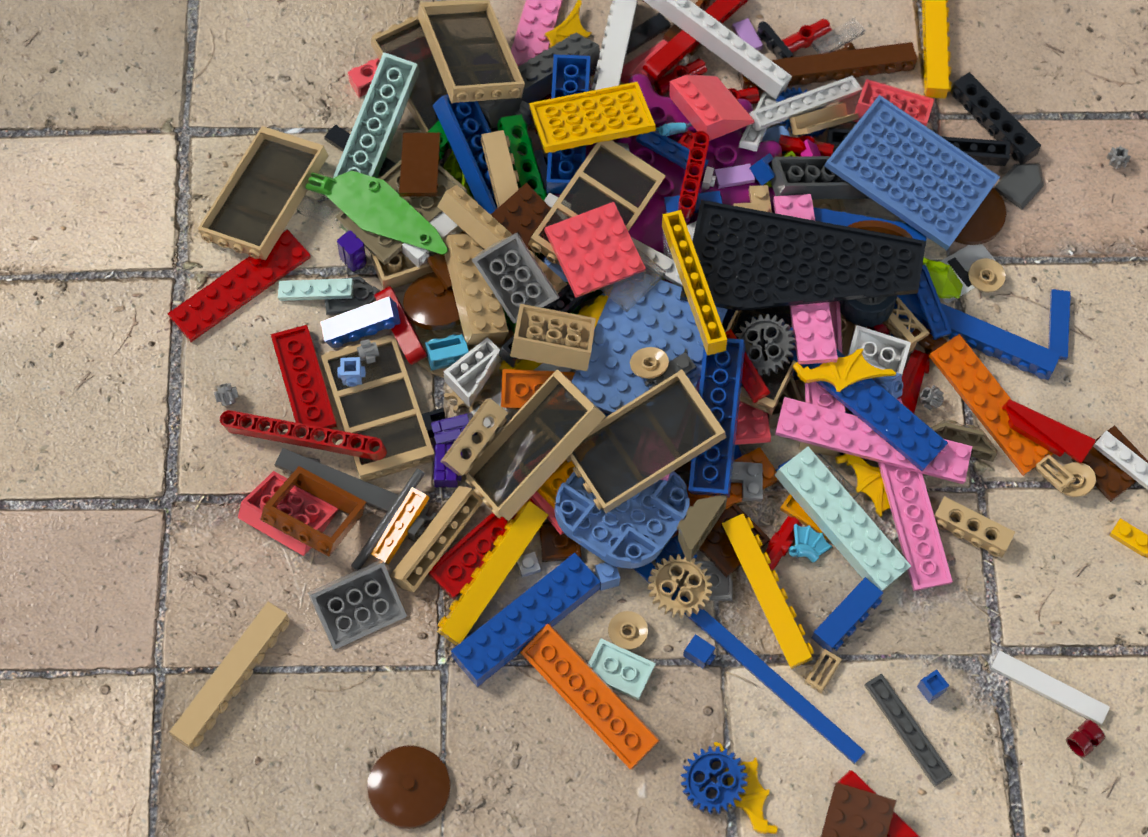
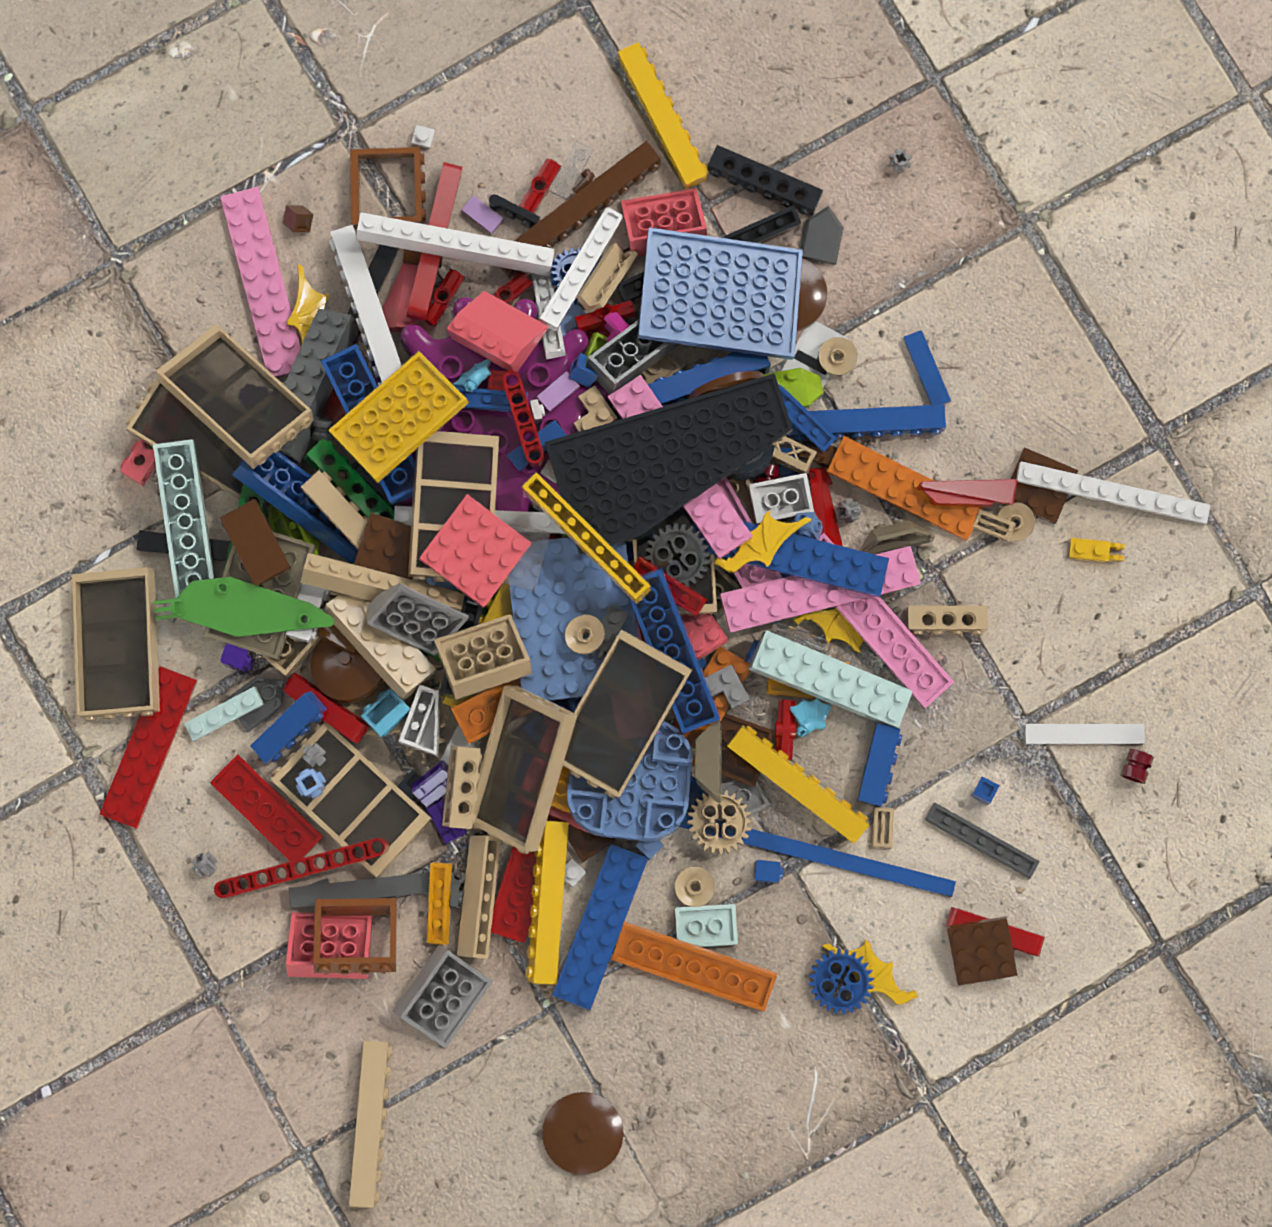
camera: 30 degrees left, 15 degrees up
(375, 537) = (423, 903): dark grey piece -> none

